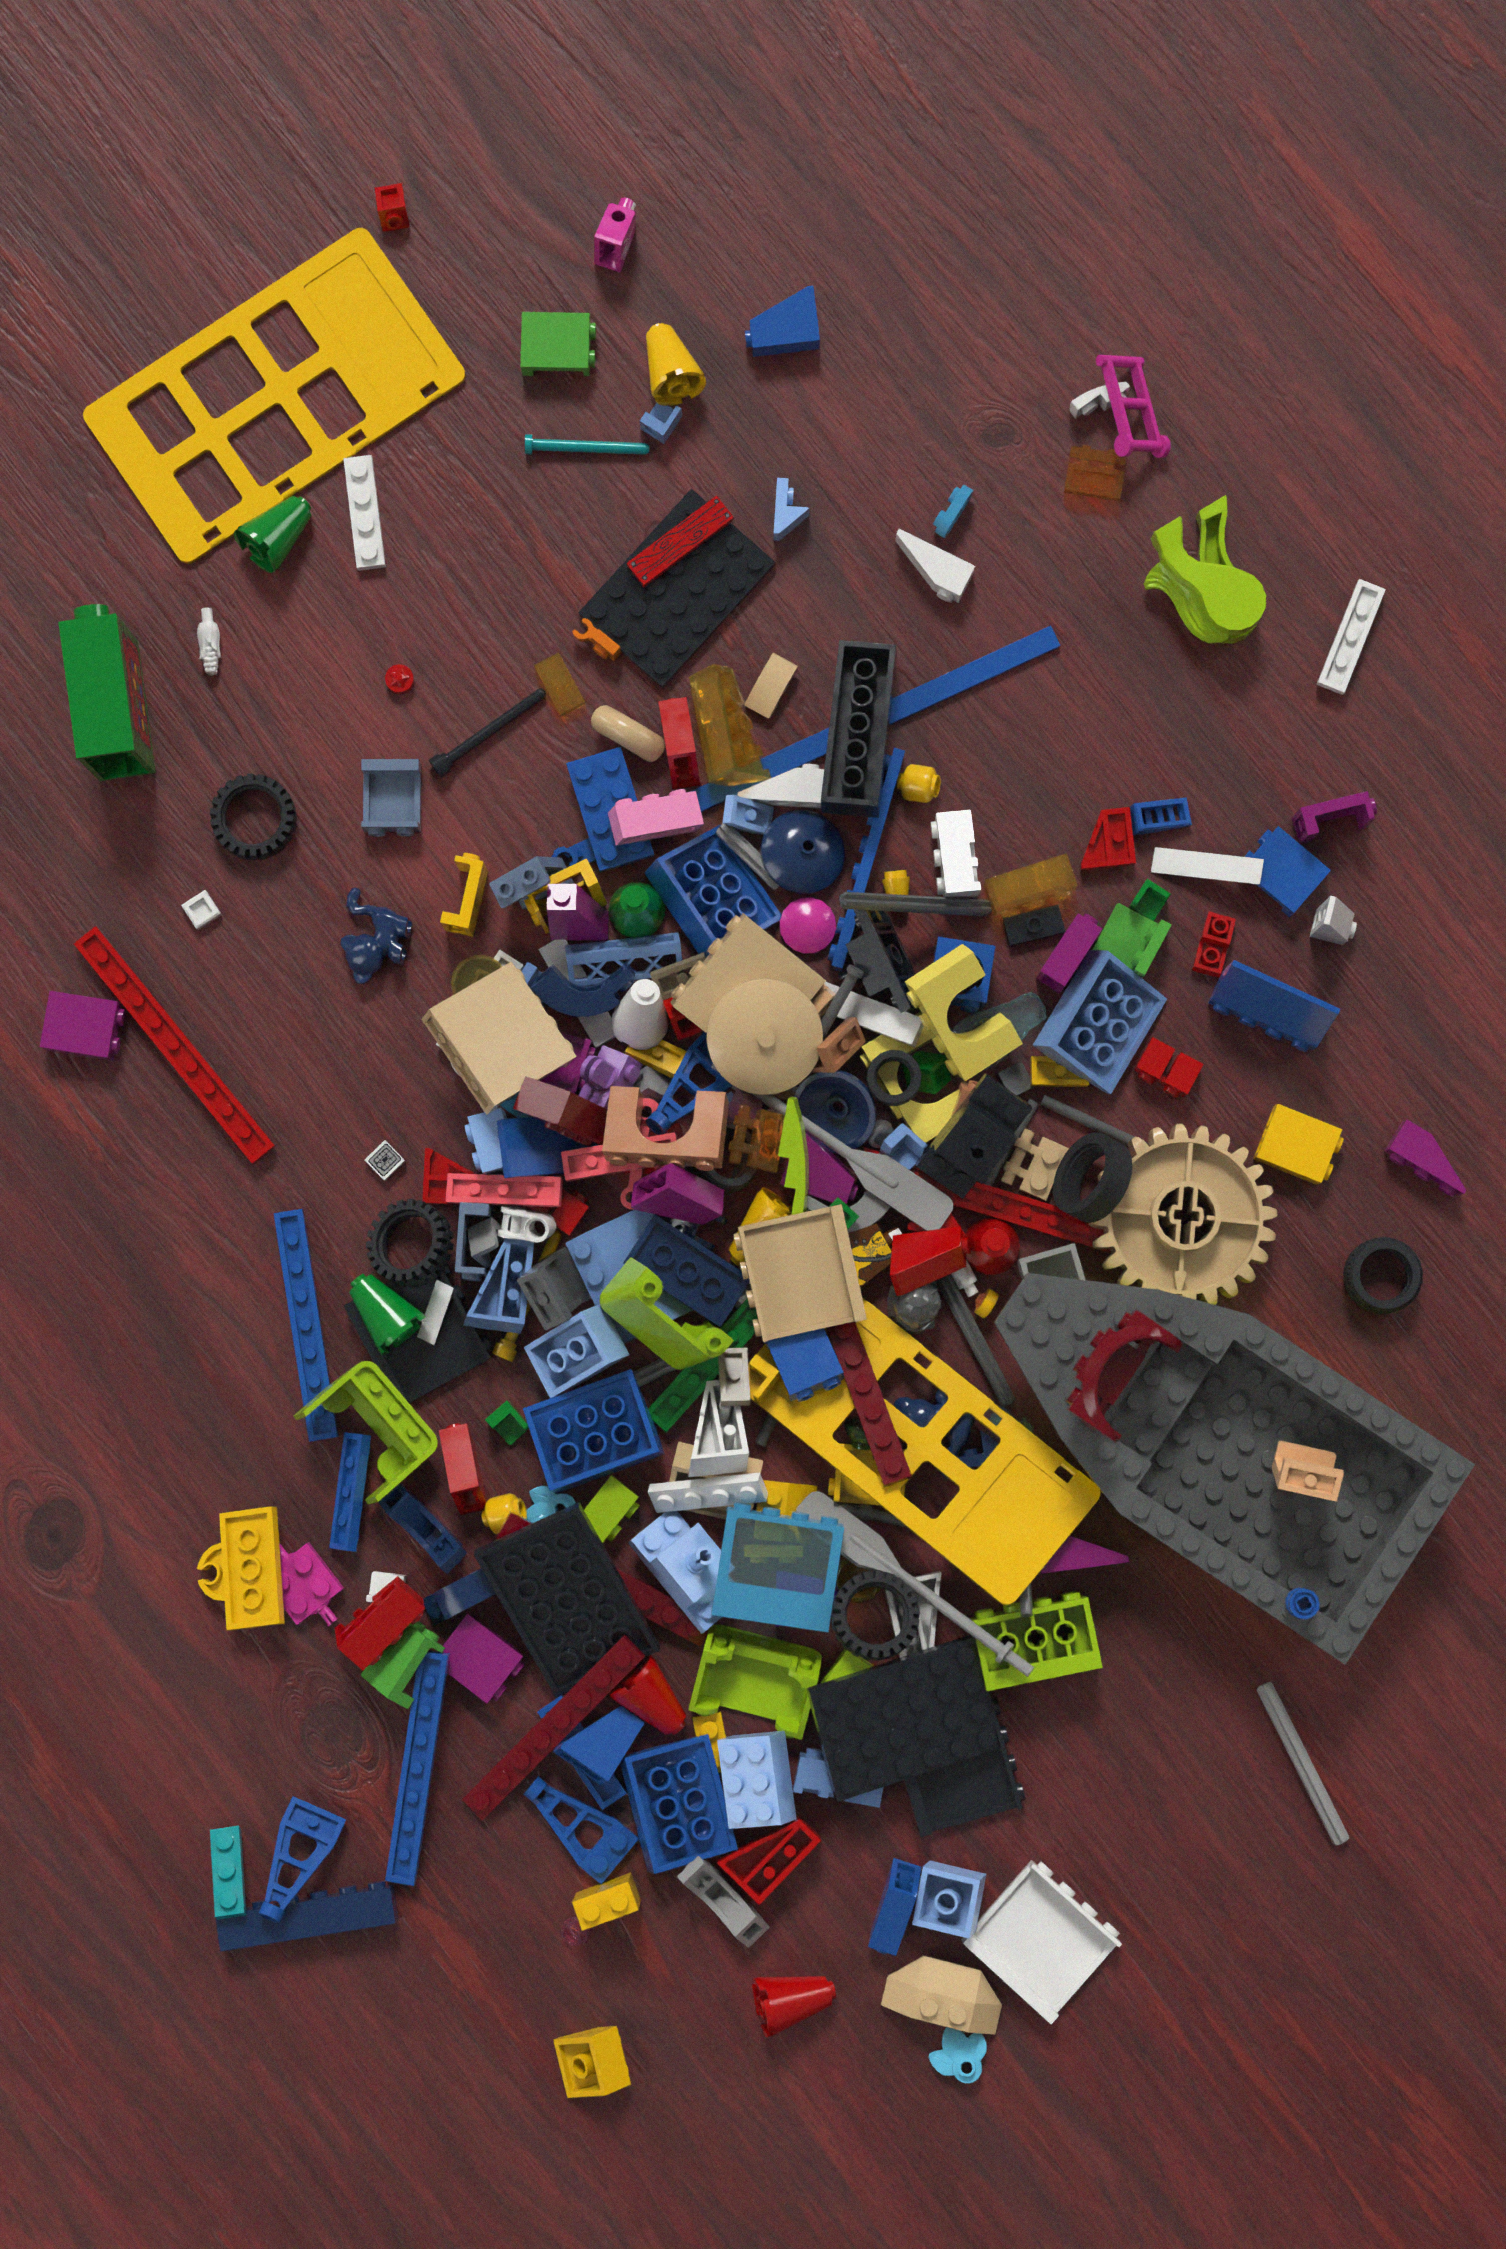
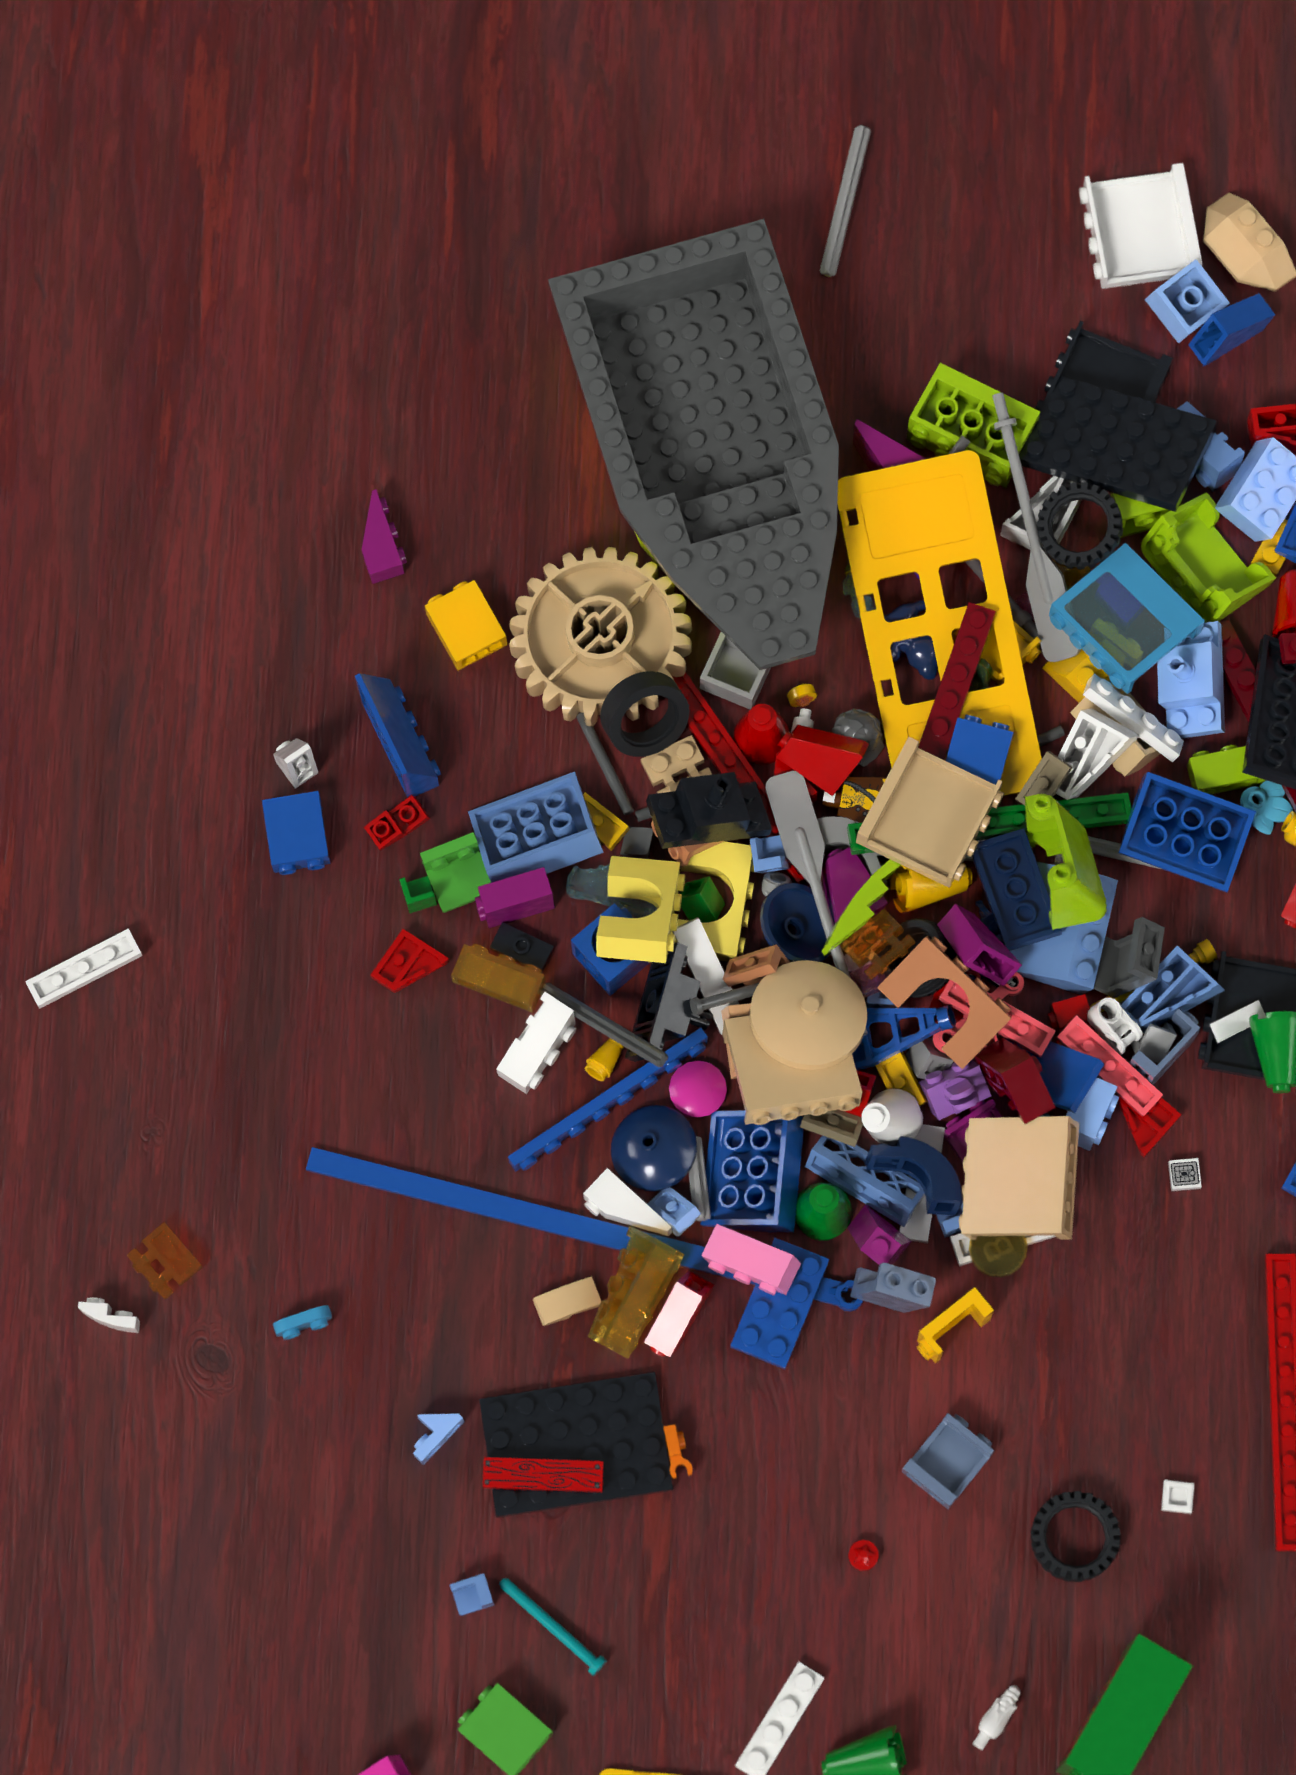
camera: 140 degrees left, 10 degrees down
(367, 952) = (1069, 1349): dark blue animal -> none
(384, 1229) = (1248, 1100): black tyre -> none
(444, 762) = (882, 1455): black piece -> none
(508, 1422) = (1245, 897): green panel -> none
(559, 684) = (736, 1443): clear yellow tile -> none
(576, 1351) = (1153, 893): light blue brick -> none
(590, 885) = (862, 1265): yellow panel -> none
(627, 733) = (715, 1354): tan cylinder -> none
(671, 367) = (426, 1631): yellow cone -> none
(761, 1378) = (1022, 766): yellow panel -> none
(786, 326) = (304, 1587): blue slope -> none
(858, 729) = (529, 1200): black brick -> none
(909, 1062) = (717, 892): black tyre -> none
(919, 783) = (517, 1125): yellow head -> none
(940, 569) = (354, 1280): white slope -> none
(956, 2052) = (1267, 200): medium azure plate -> none
(971, 1457) = (900, 586): dark blue slope -> none
(976, 1340) = (833, 670): dark grey axle -> none
(1111, 1367) = (760, 540): dark red piece -> none
(1124, 442) = (94, 1241): dark pink piece -> none
(1144, 808) = (367, 960): blue slope -> none
(1181, 1074) = (513, 757): red piece -> none
(1207, 865) = (350, 882): white sticker -> none
(1210, 593) = (162, 1082): lime animal -> none
(1296, 1602) = (759, 283): blue wheel -> none
(1306, 1471) = (675, 372): light nougat panel -> none
(1307, 817) = (243, 853): magenta panel -> none
(1412, 1268) = (487, 455): black tyre -> none

